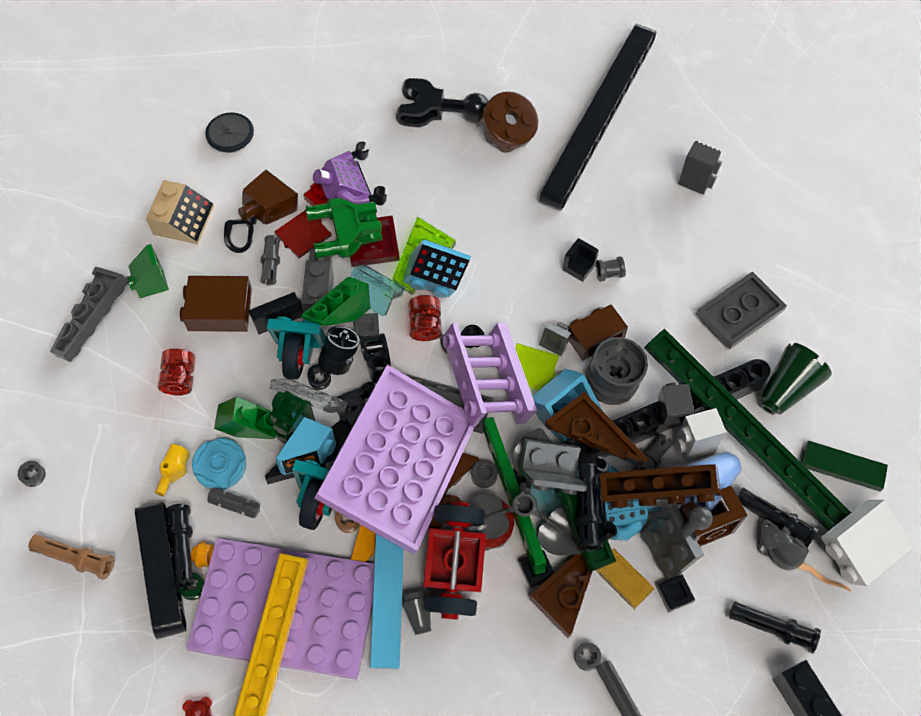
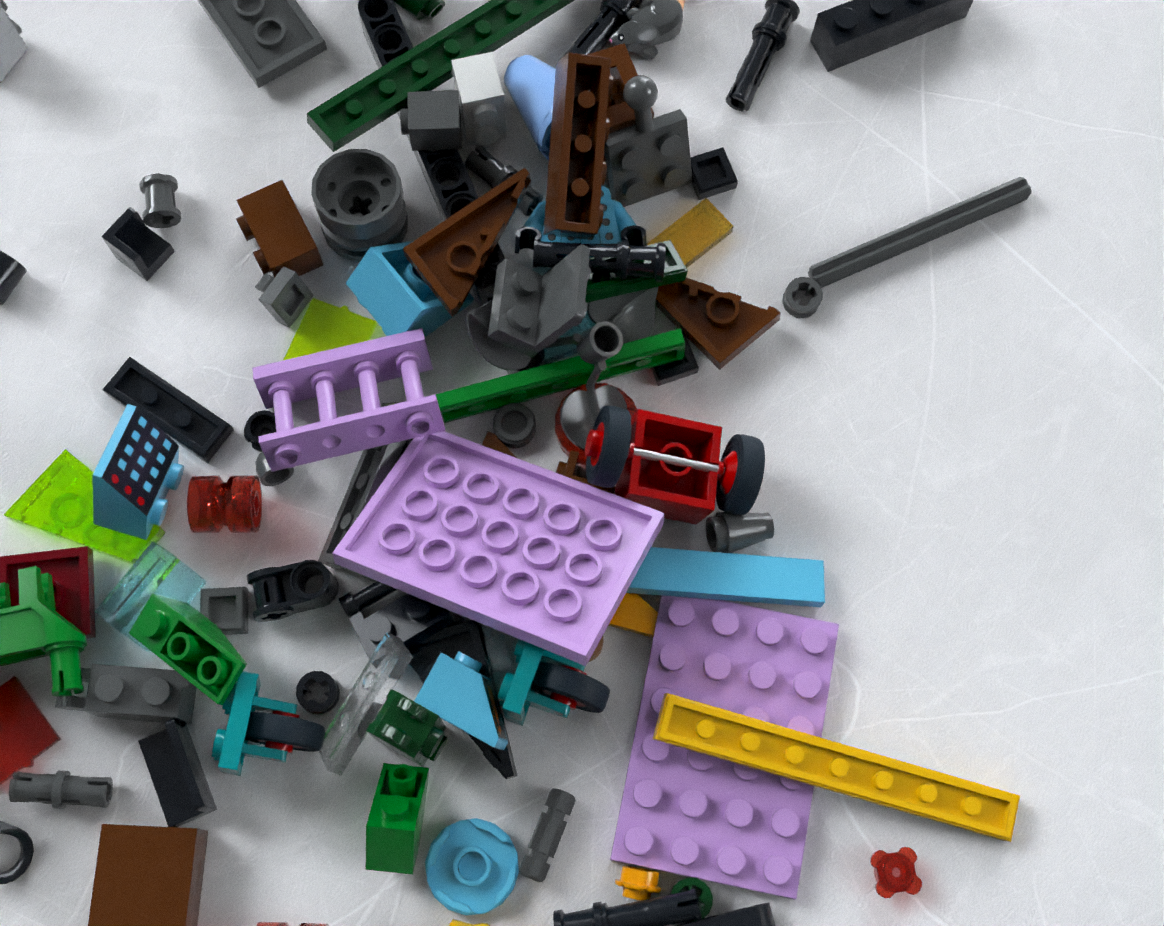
camera: 90 degrees left, 10 degrees up
(338, 350) = (278, 650): black wheel -> none
(482, 288) = (169, 409): none -> black tile

